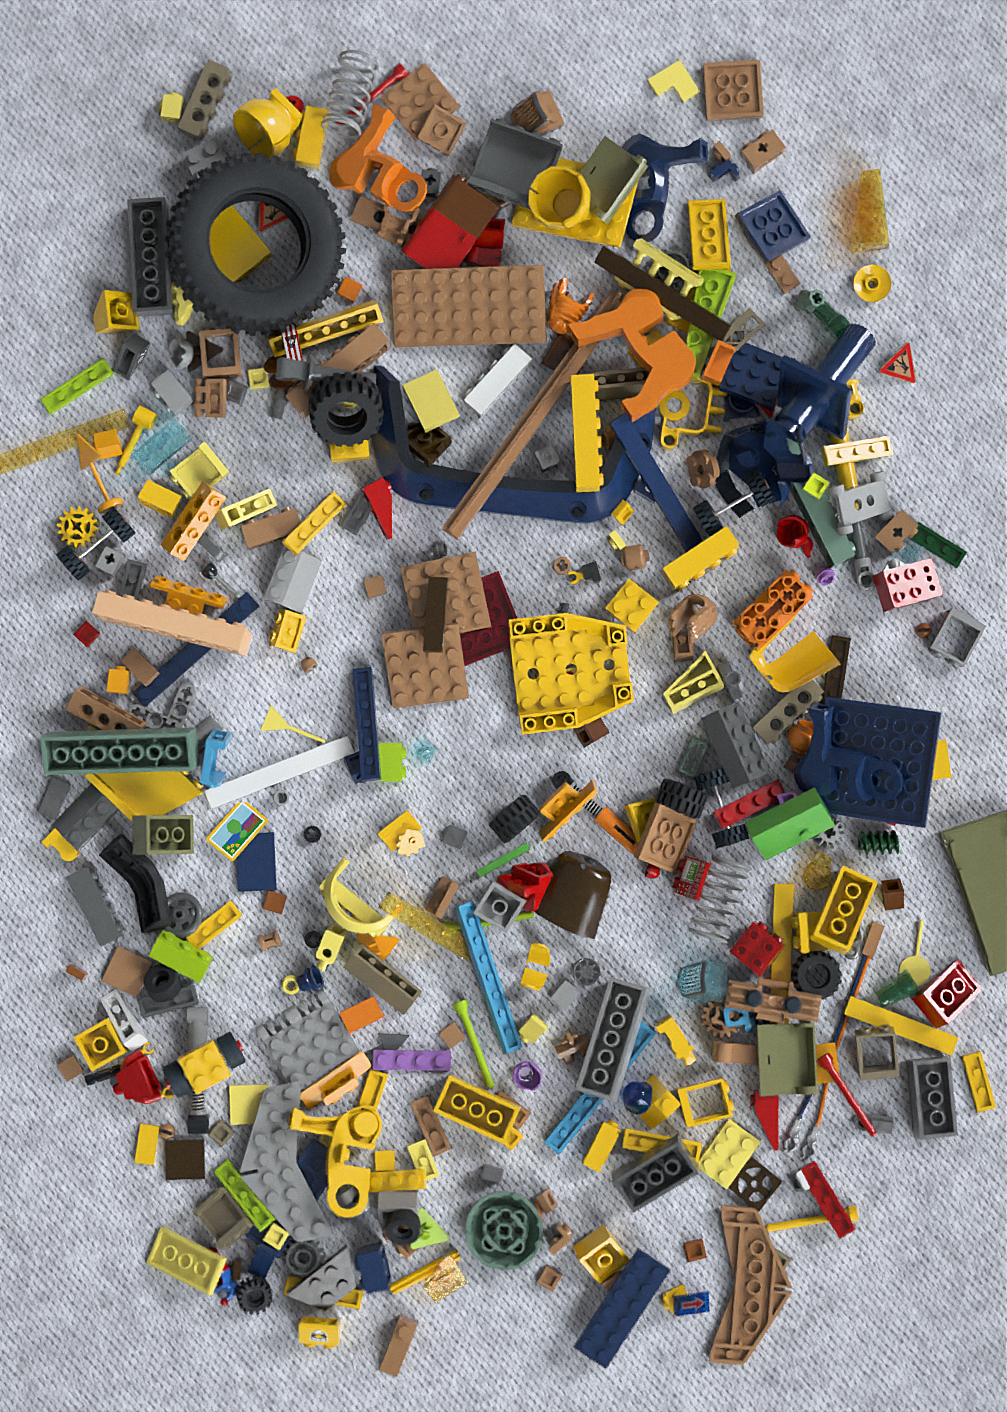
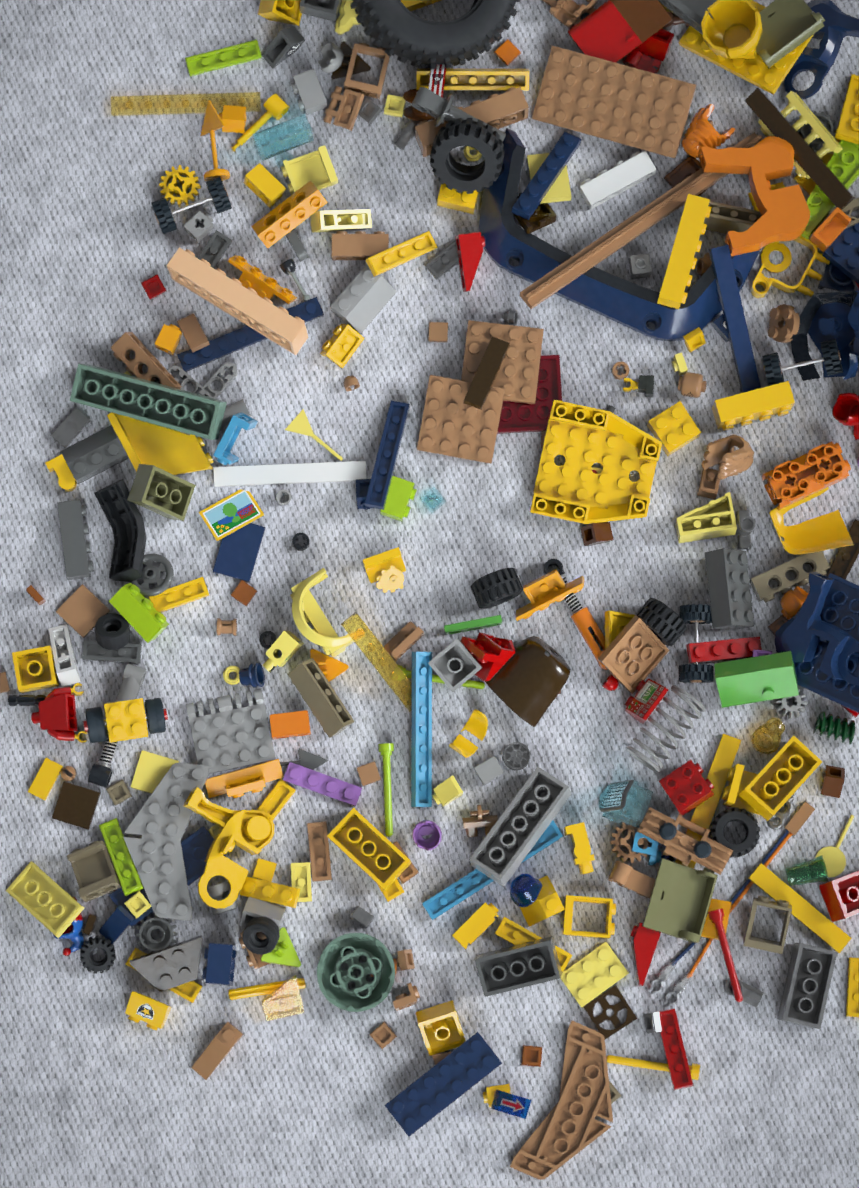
camera: 15 degrees right, 5 degrees down
(428, 400) = (546, 175): none -> dark blue plate
(455, 837) = (434, 588): flat silver piece -> none
(687, 772) = (695, 577): sand green tile -> none

